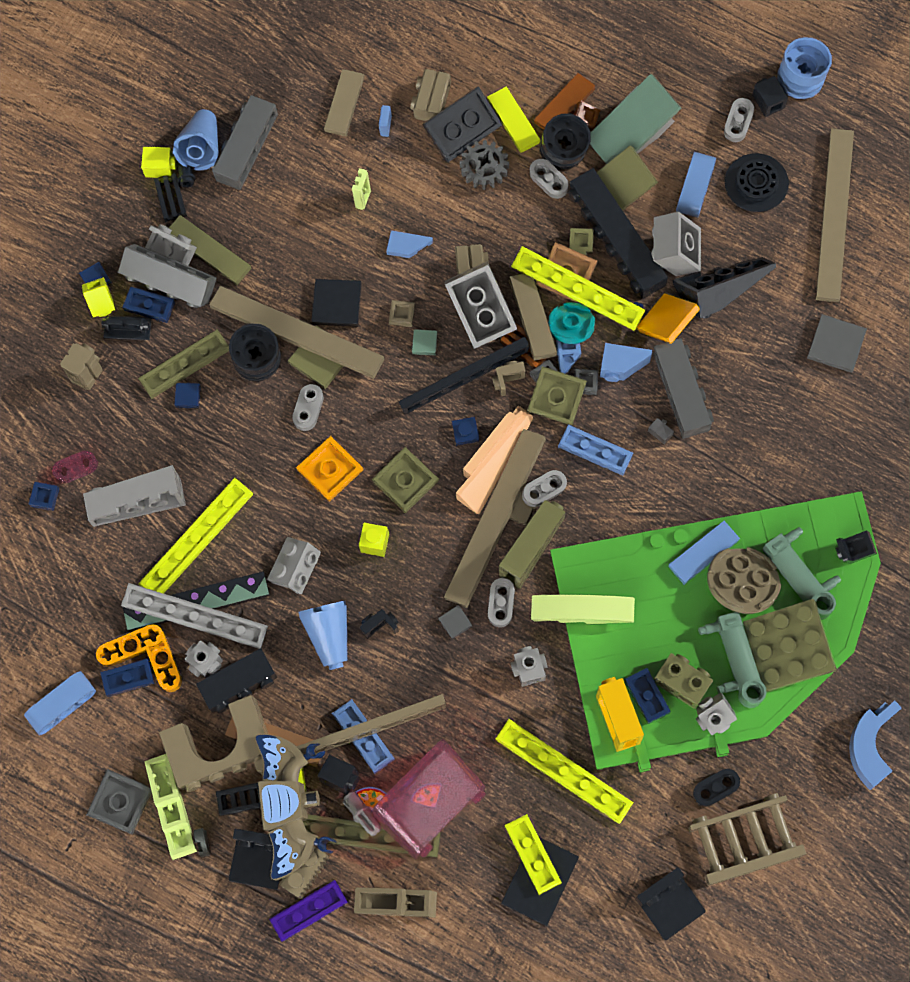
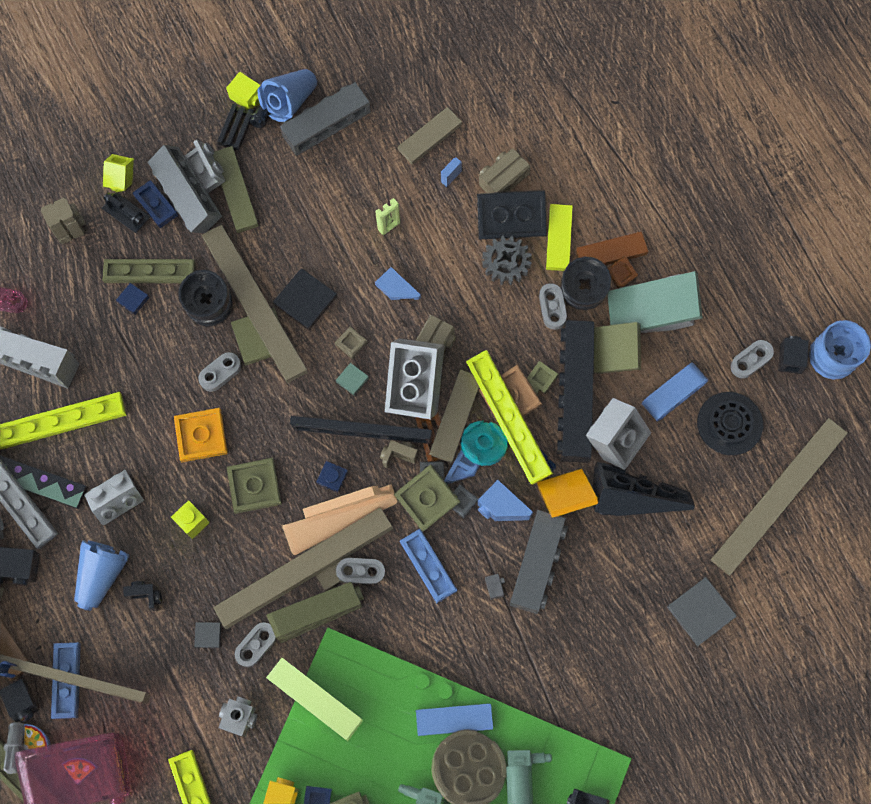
camera: 30 degrees right, 0 degrees up
(93, 273) = (132, 151): dark blue tile -> none

